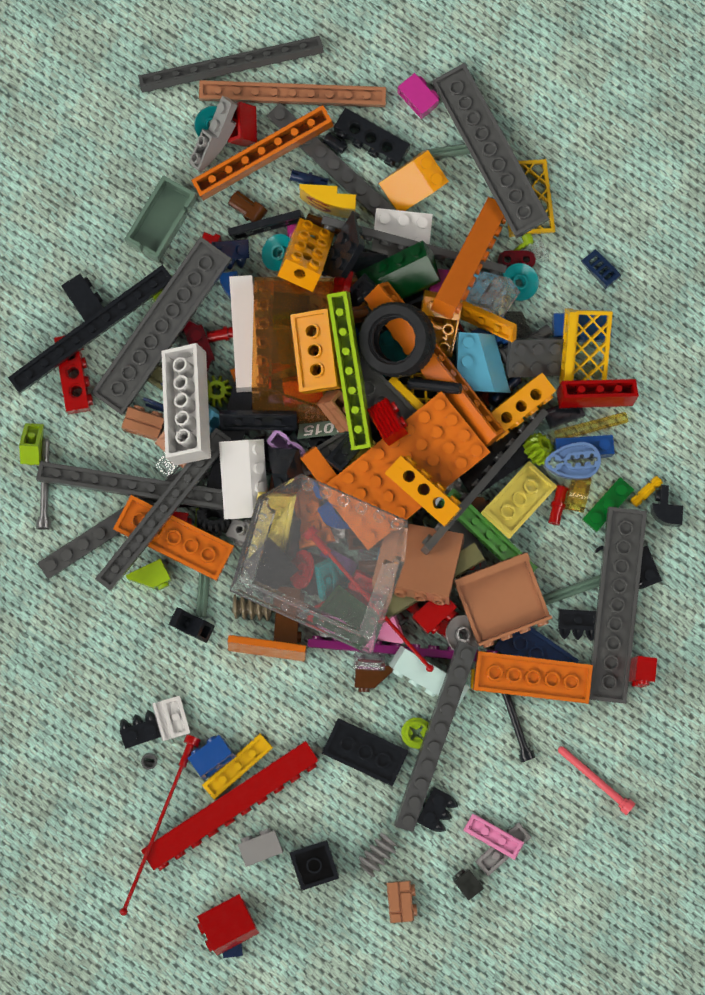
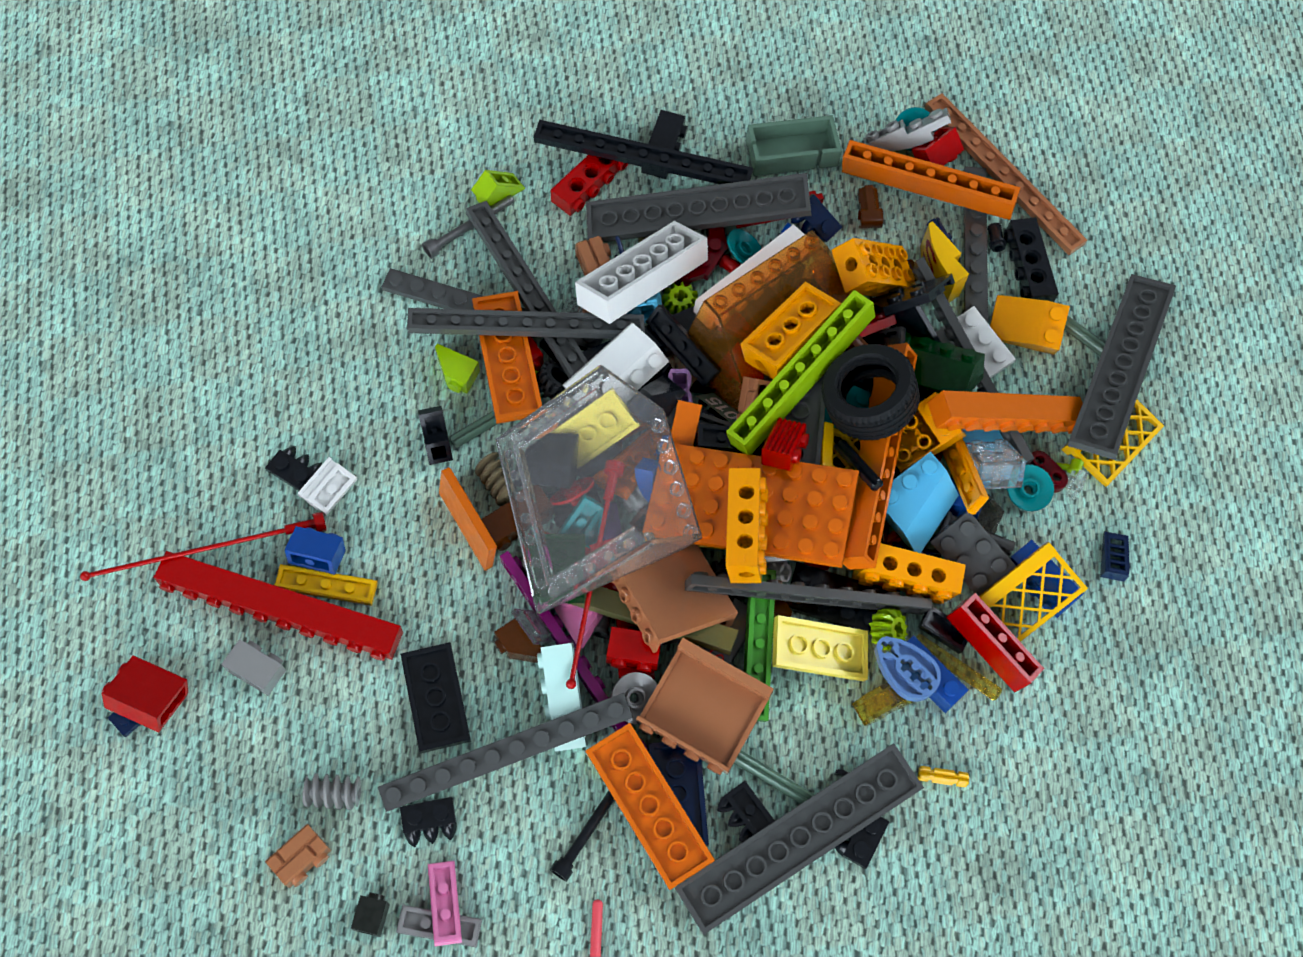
camera: 50 degrees right, 15 degrees down
(149, 764) = (264, 499): dark grey hinge -> none
(212, 316) = (742, 245): none -> teal dish
(230, 64) = (987, 112): dark grey plate -> none
(265, 225) = (866, 227): black tile -> none
(314, 865) = (273, 733): black brick -> none
(406, 732) = (488, 726): lime gear -> none
(418, 95) = (1107, 272): dark pink brick -> none
(558, 505) = (848, 695): red pin -> none
(612, 498) = (912, 747): green plate -> none
(642, 671) = (752, 918): red brick -> none
(663, 512) = (938, 813): black brick -> none

